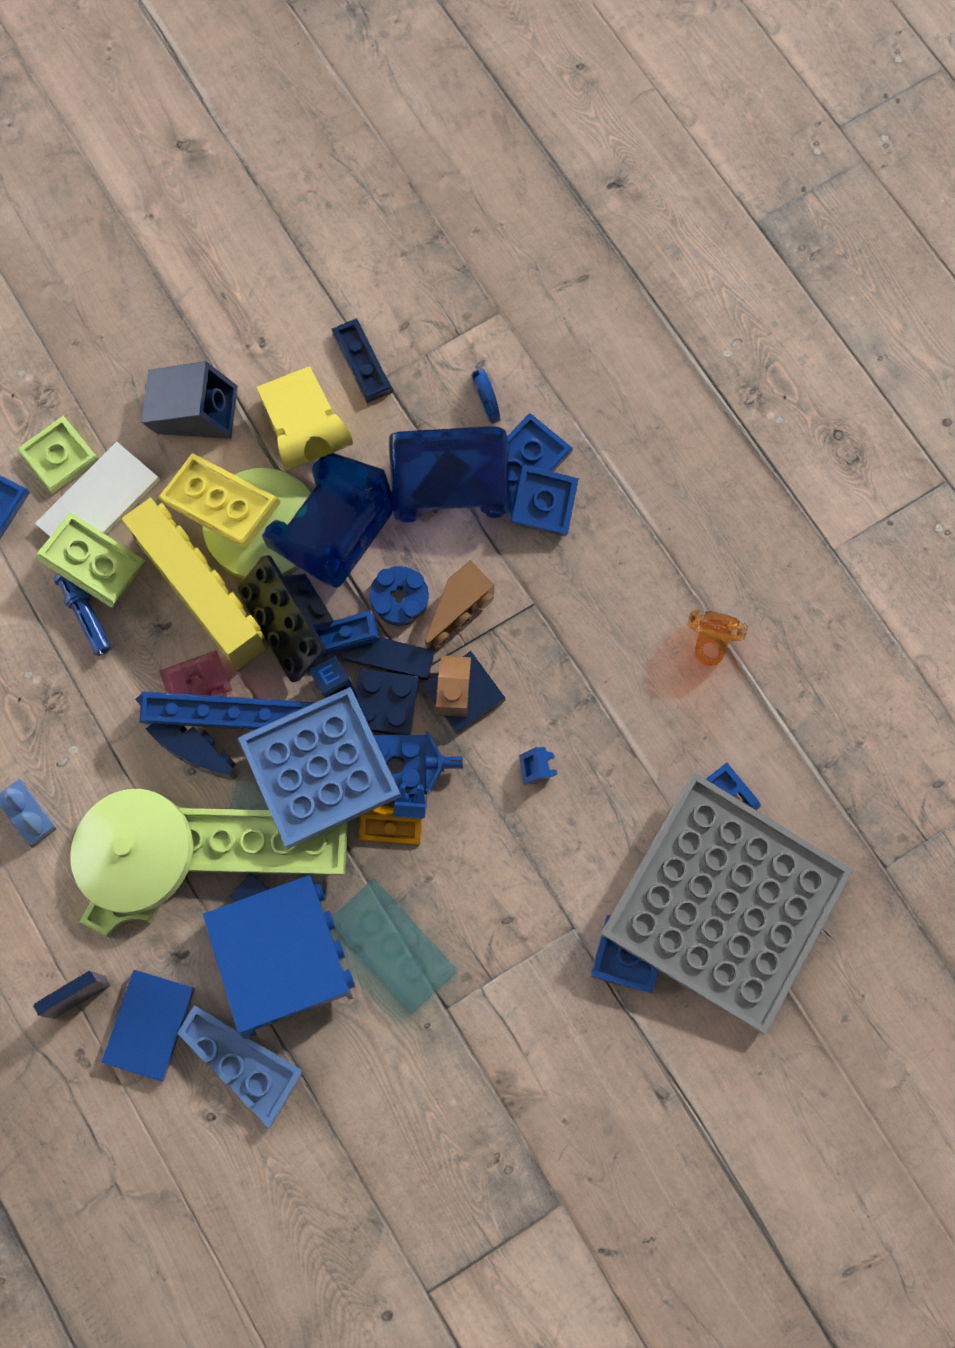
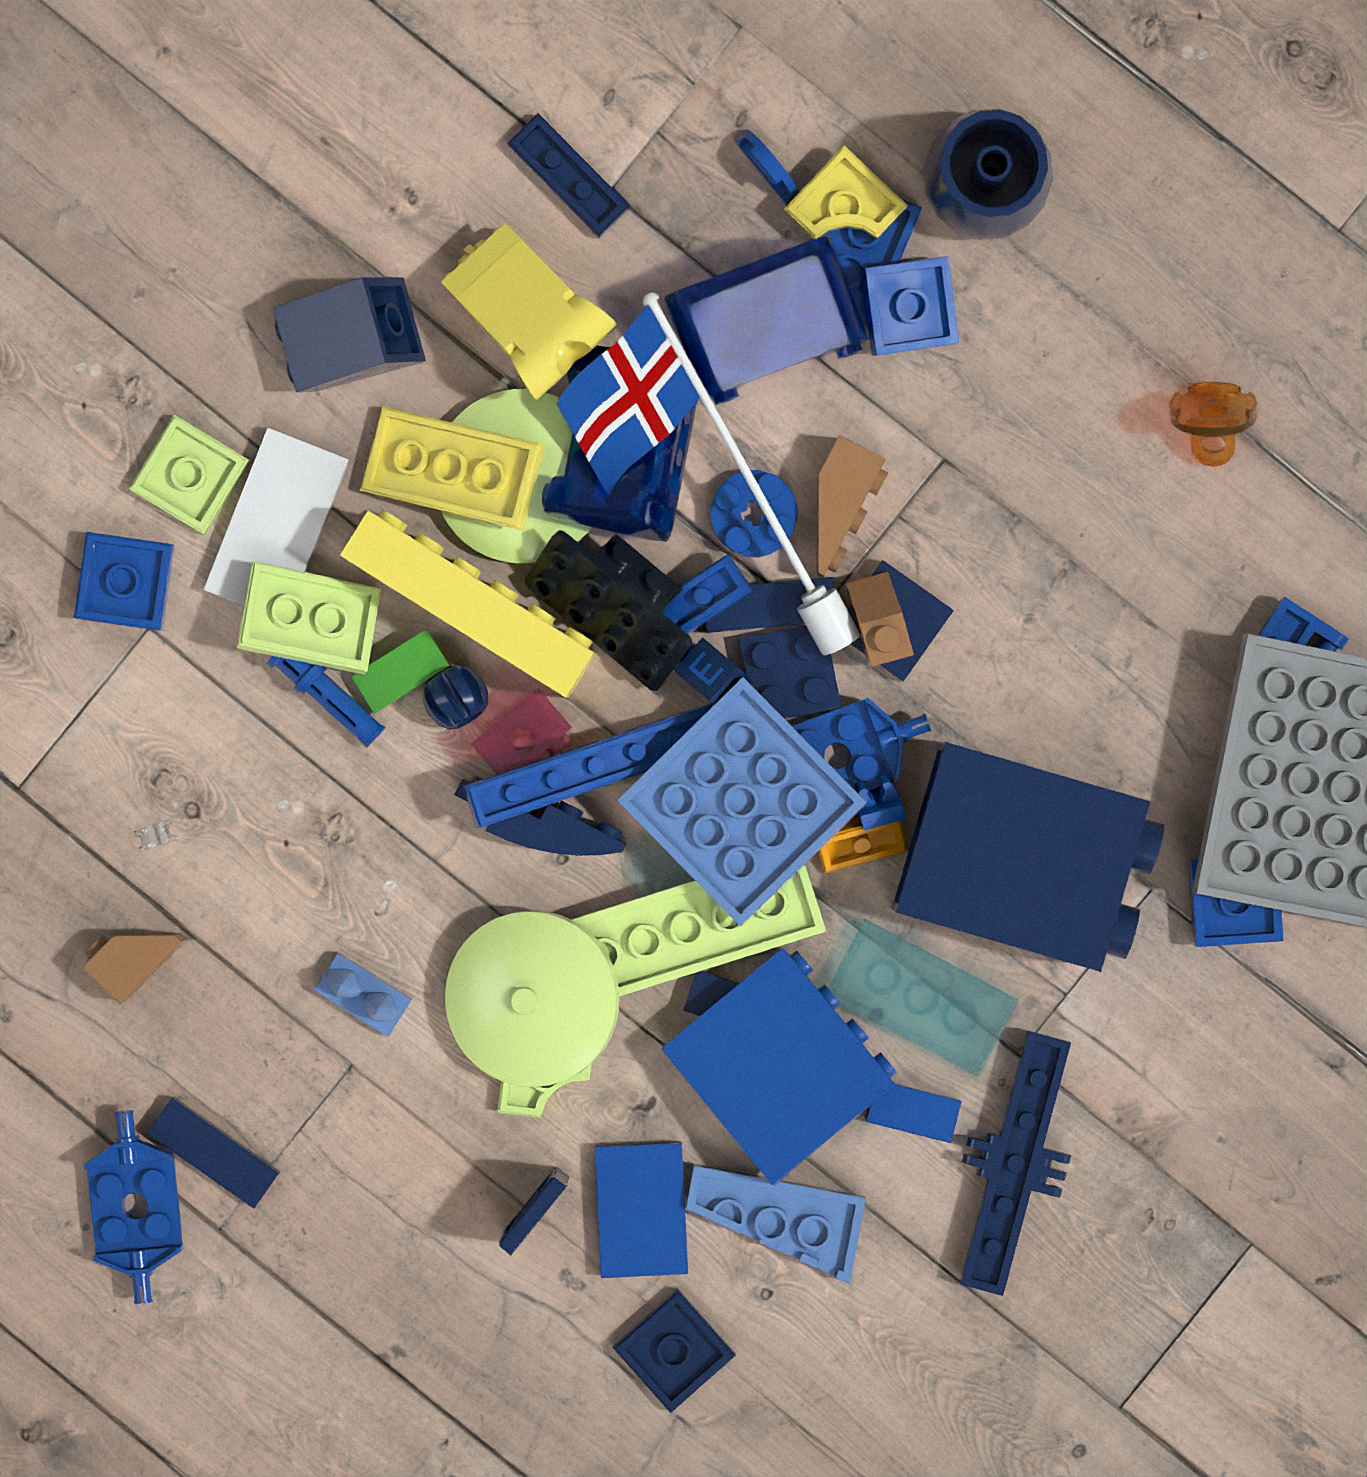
camera: 20 degrees left, 15 degrees up
(131, 1134) = (674, 1350): none -> dark blue tile
(134, 614) = (400, 671): none -> bright green slope
(163, 641) = (455, 697): none -> dark blue piece
(346, 490) = (635, 400): none -> flag
(359, 1023) = (916, 1112): none -> blue tile
(414, 1085) = (1015, 1163): none -> dark blue hinge
(495, 870) = (1027, 858): none -> dark blue brick
(528, 424) = (845, 196): none -> light yellow tile
(535, 765) = (1028, 691): blue tile -> none
(621, 433) = (983, 203): none -> dark blue piece

